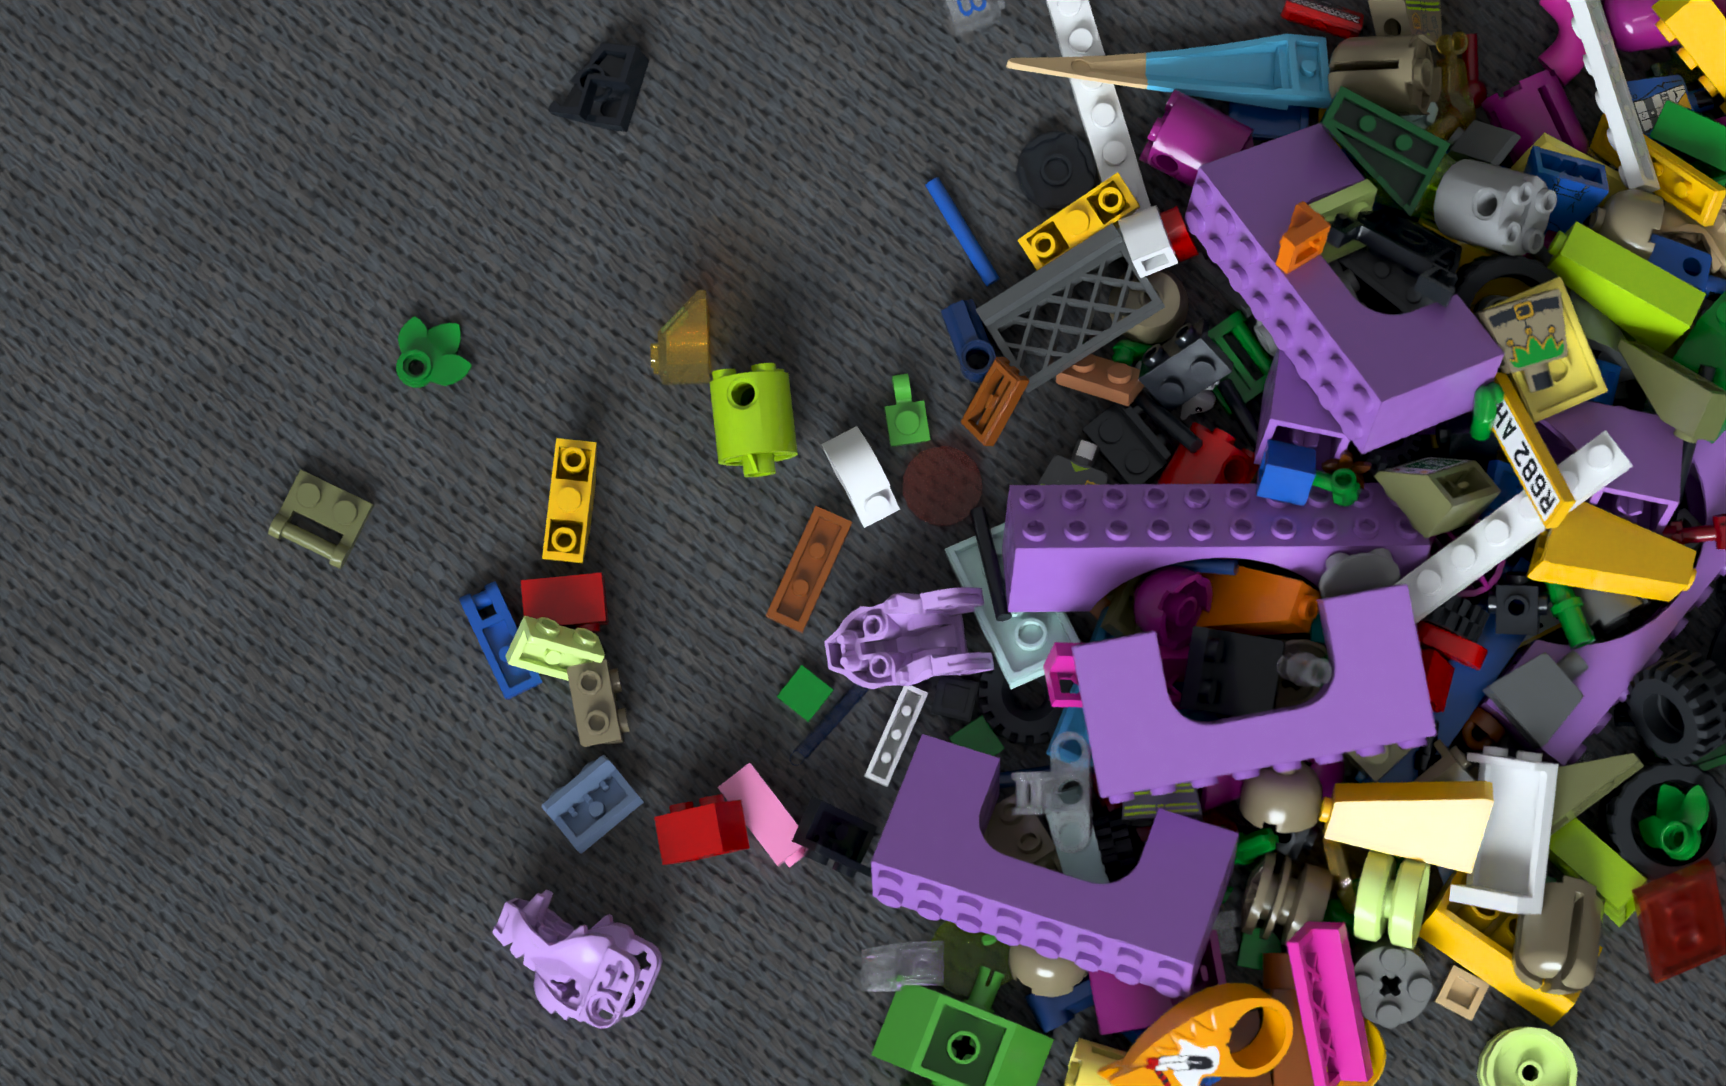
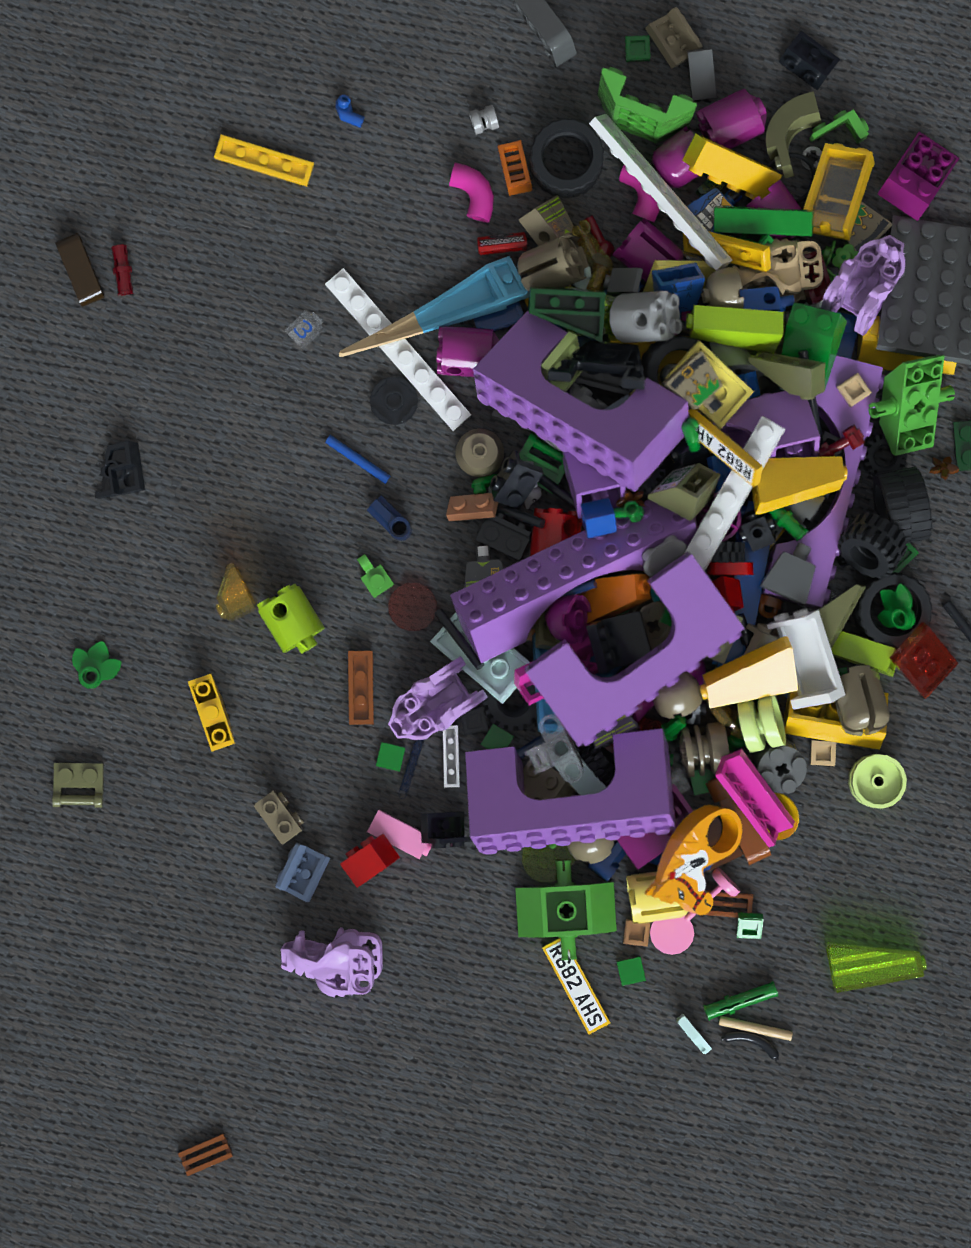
camera: 25 degrees left, 5 degrees up
(495, 638) = (210, 806): blue plate -> none
(551, 648) = (240, 798): yellowish green bracket -> none
(568, 600) = (235, 769): red brick -> none
(861, 476) = (365, 623): white brick -> none
(902, 964) = (512, 880): clear slope -> none
(998, 405) = (423, 549): dark orange tile -> none
(1046, 287) = (419, 470): dark grey fence -> none
(1079, 221) = (421, 427): yellow slope -> none
(1147, 241) = (463, 421): white brick -> none
(1179, 234) = (477, 408): red beam -> none
(1303, 239) = (549, 387): orange bracket -> none
(1304, 669) = (657, 623): clear pin -> none

